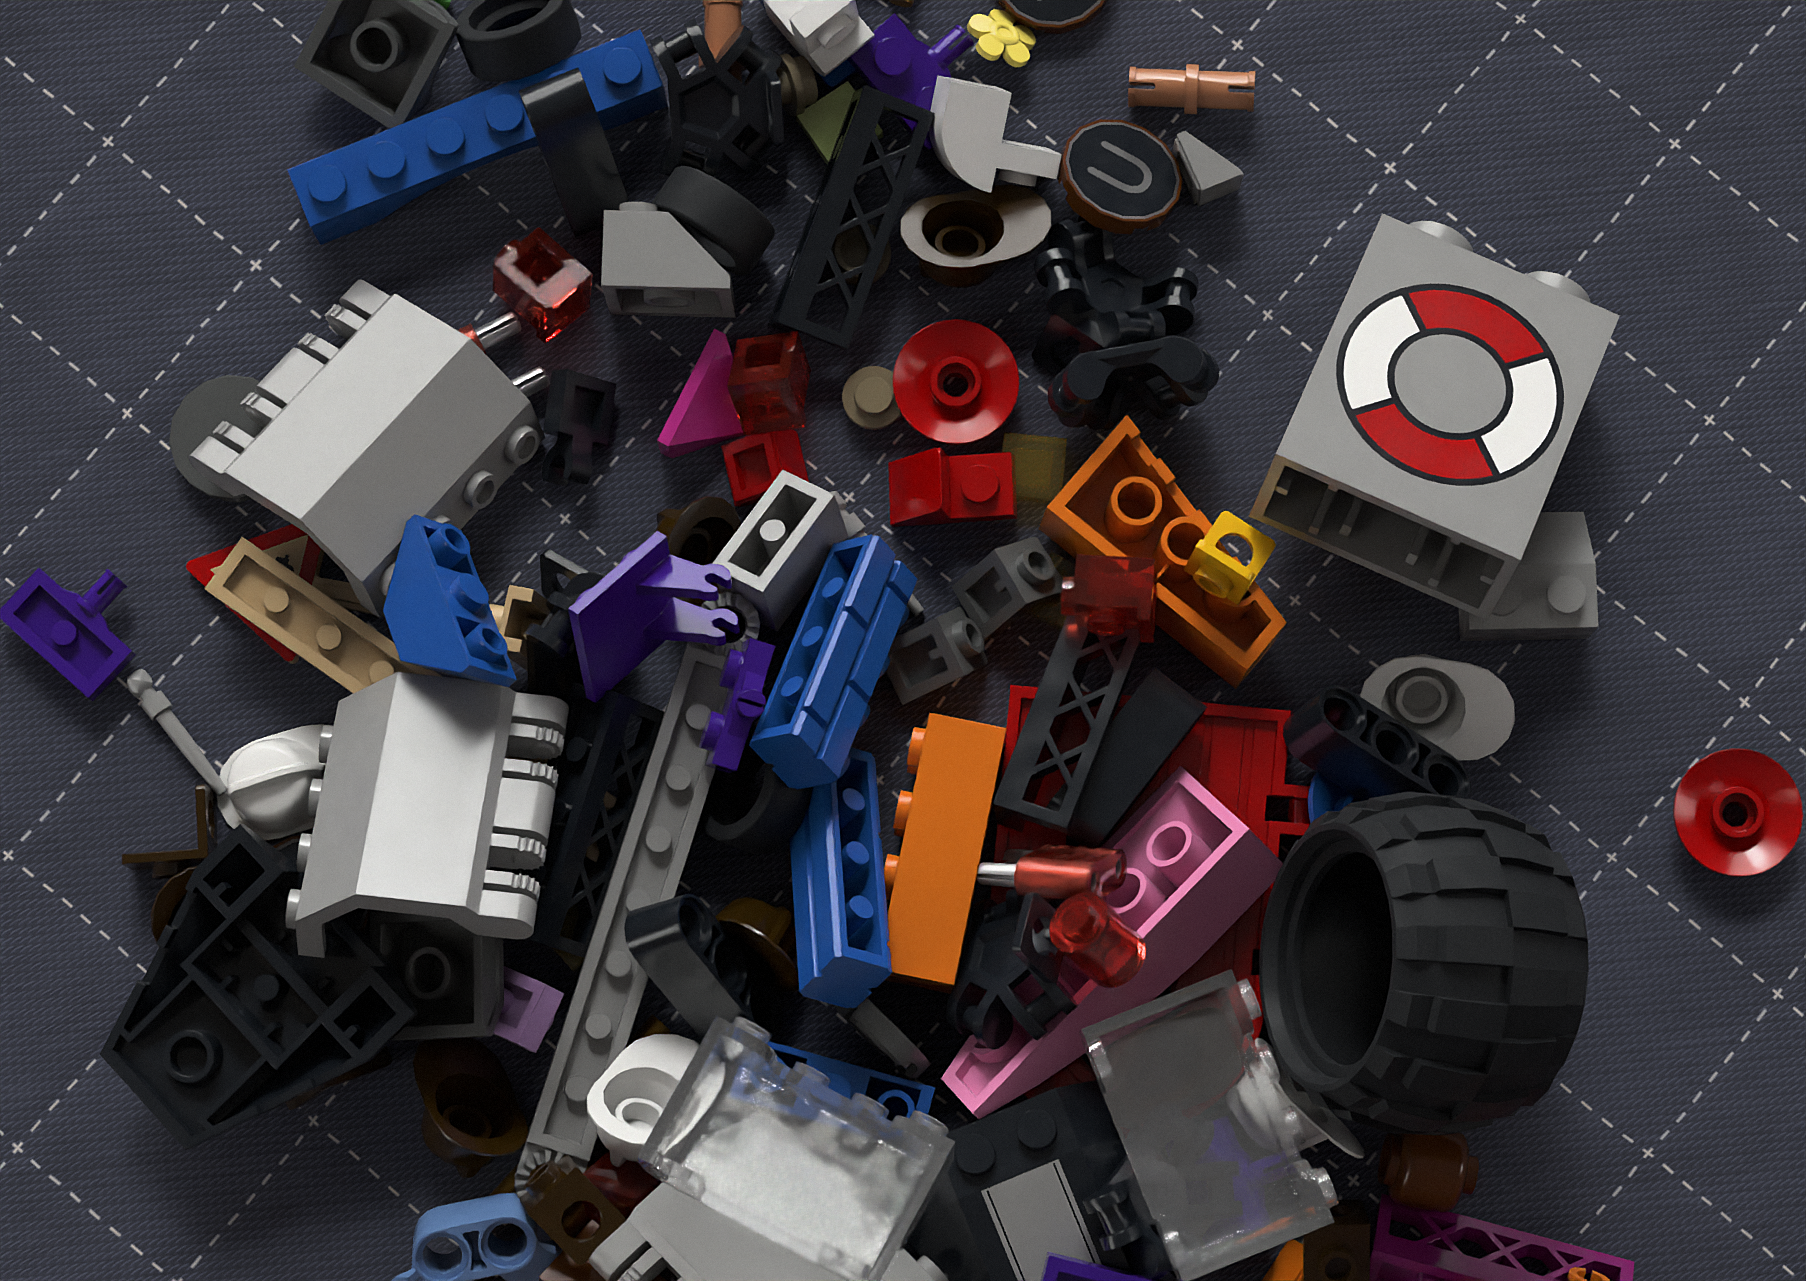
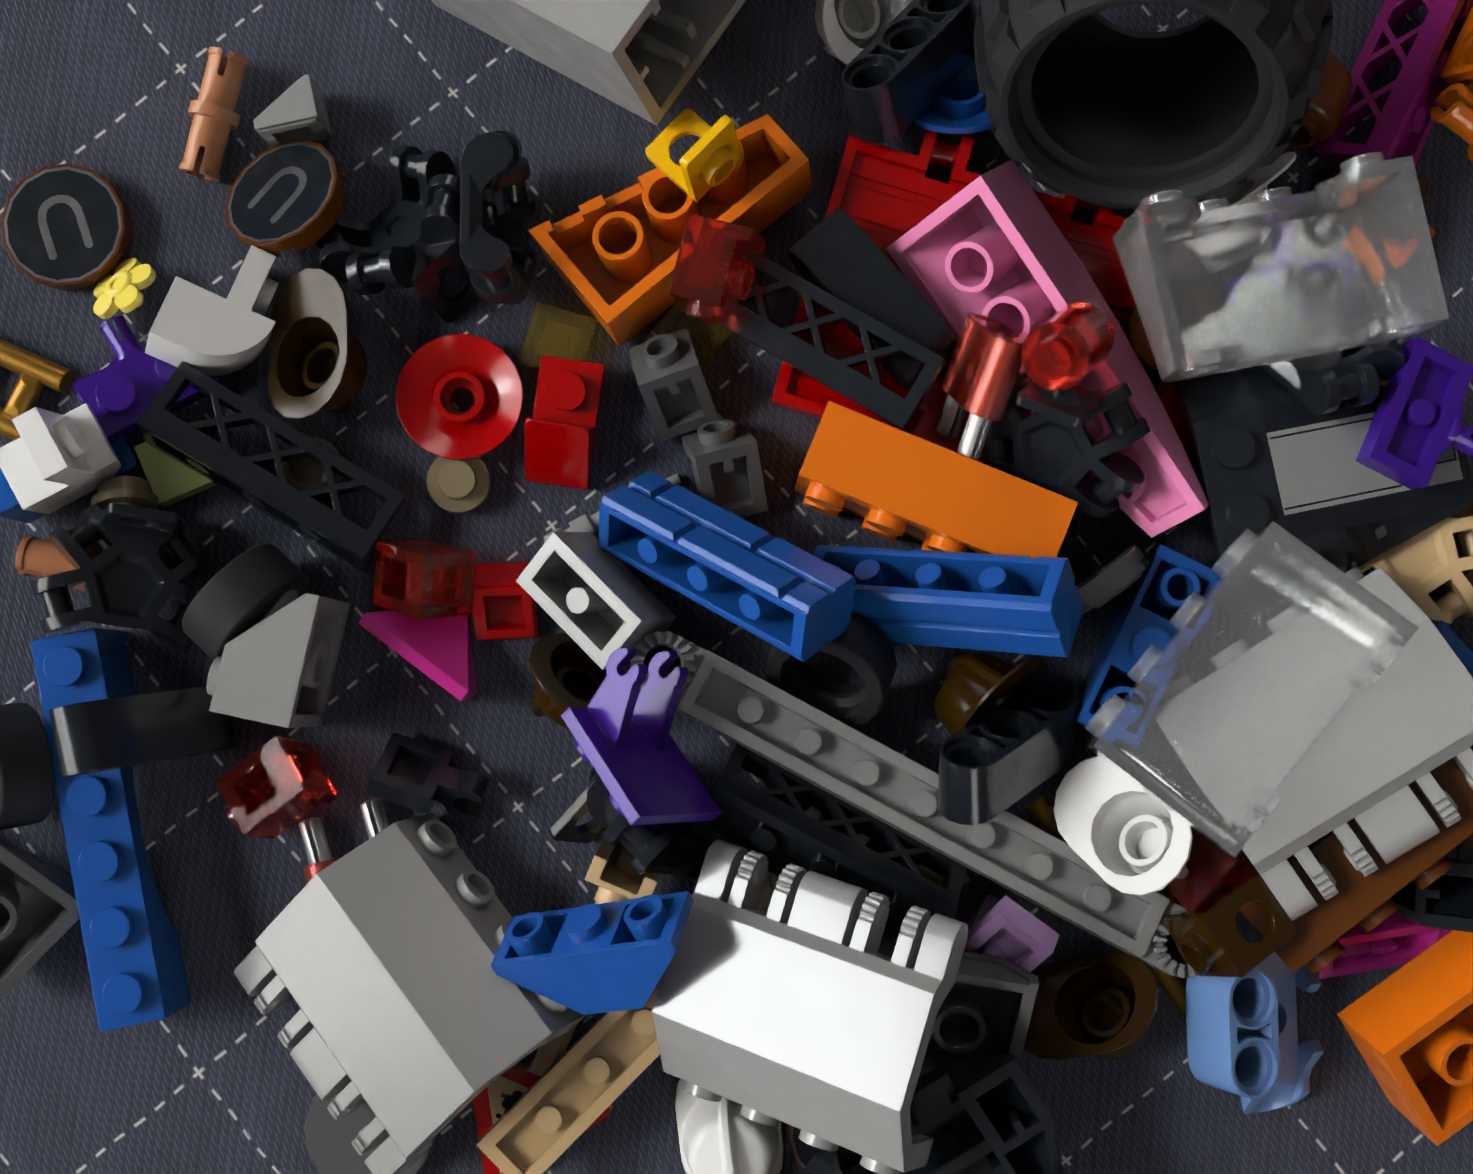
camera: 80 degrees left, 5 degrees up
(744, 678) = (755, 663): dark purple plate -> none

